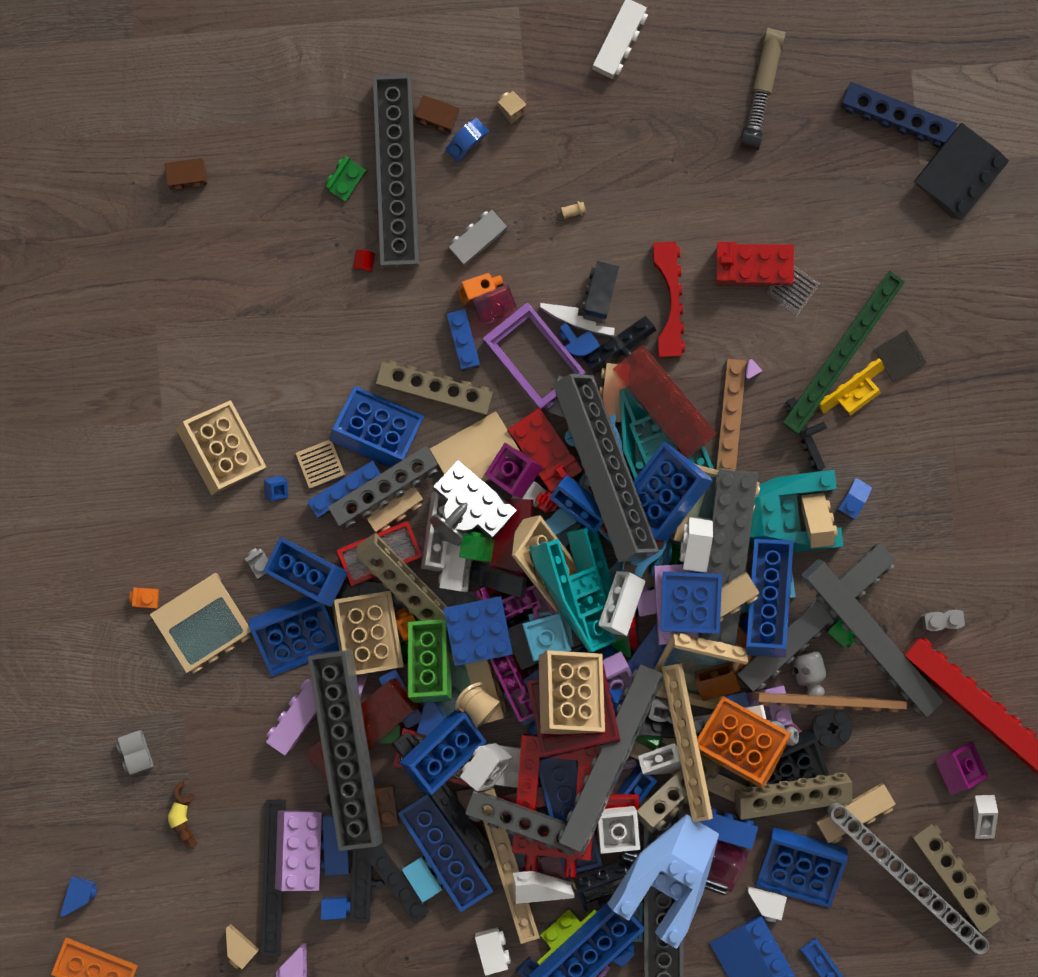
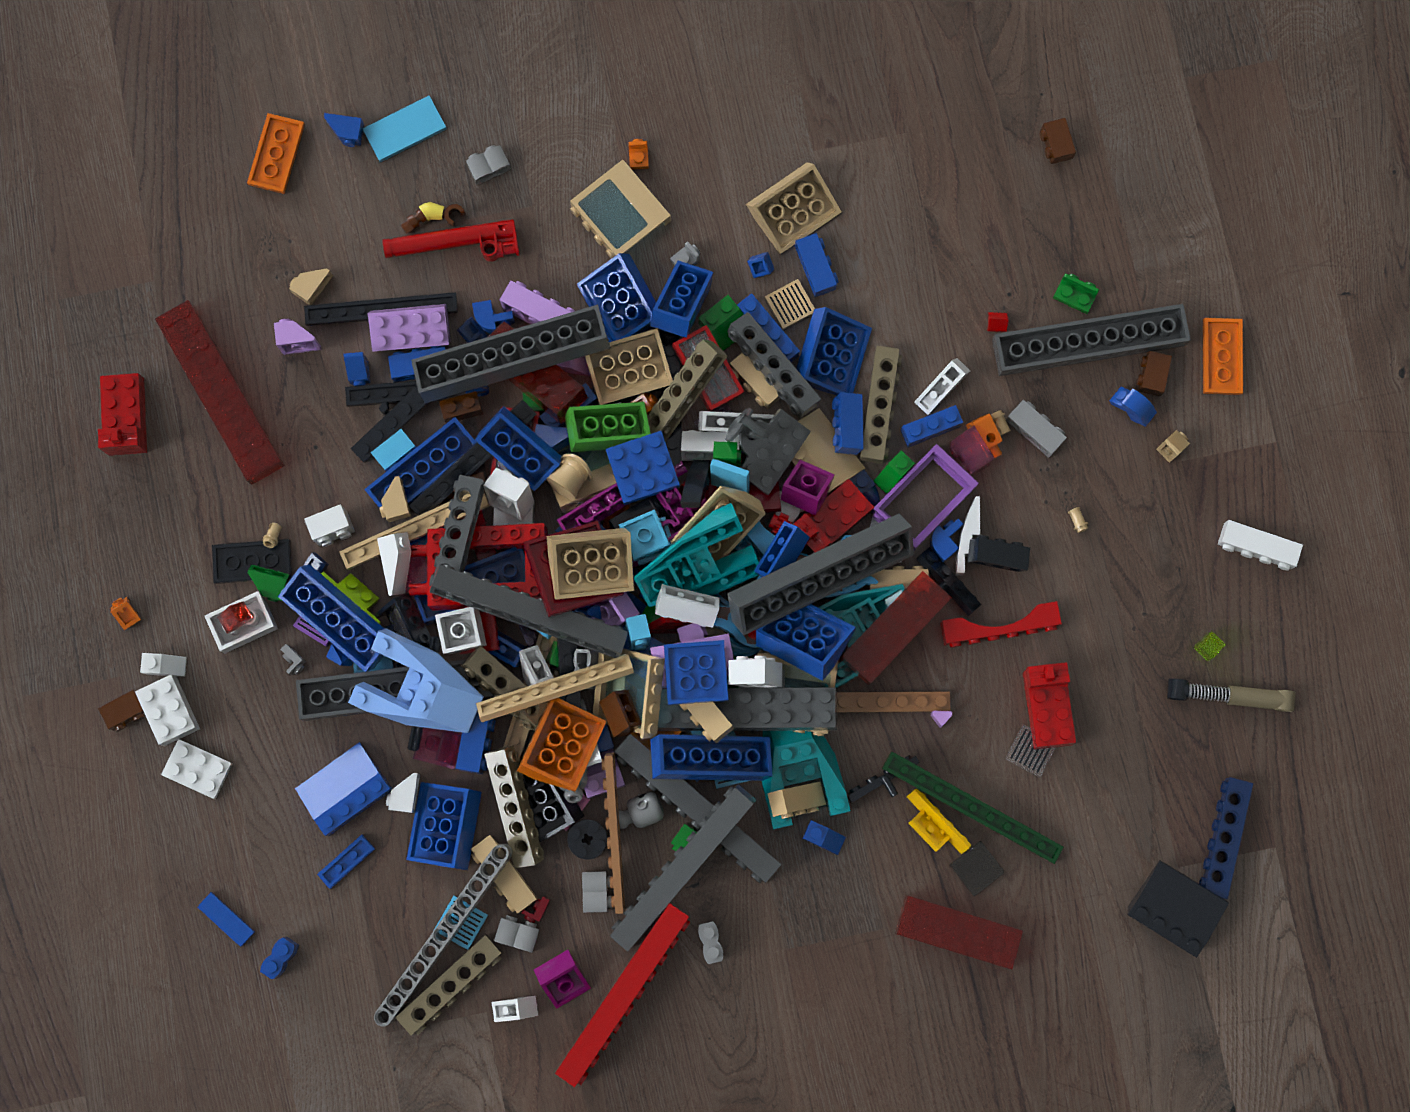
camera: 80 degrees right, 5 degrees down
(85, 834) = (404, 128): none -> medium azure tile
(211, 749) = (495, 235): none -> red piece
(283, 432) = (816, 264): none -> blue brick
(296, 771) = (487, 319): none -> blue brick
(310, 786) = (471, 331): none -> dark blue plate
(330, 535) = (719, 319): none -> green slope
(423, 324) = (942, 386): none -> white slope
(427, 45) = (1223, 356): none -> orange plate
(450, 422) = (848, 423): none -> blue brick
(466, 272) = (1000, 422): none -> tan pin
(479, 882) = (395, 502): none -> tan slope
(495, 545) = (729, 476): none -> medium azure tile
(505, 383) = (894, 472): none -> green slope
(516, 412) = (866, 487): none -> dark blue plate
(640, 654) = (638, 632): none -> medium azure brick
(713, 102) = (1209, 646): none -> clear neon green panel
(882, 726) = (595, 892): none -> light grey brick
(891, 781) = (540, 907): none -> dark red bracket
(903, 851) = (469, 929): none -> medium azure tile
(914, 806) = (517, 934): none -> light grey brick
(959, 382) = (959, 932): none -> clear red brick

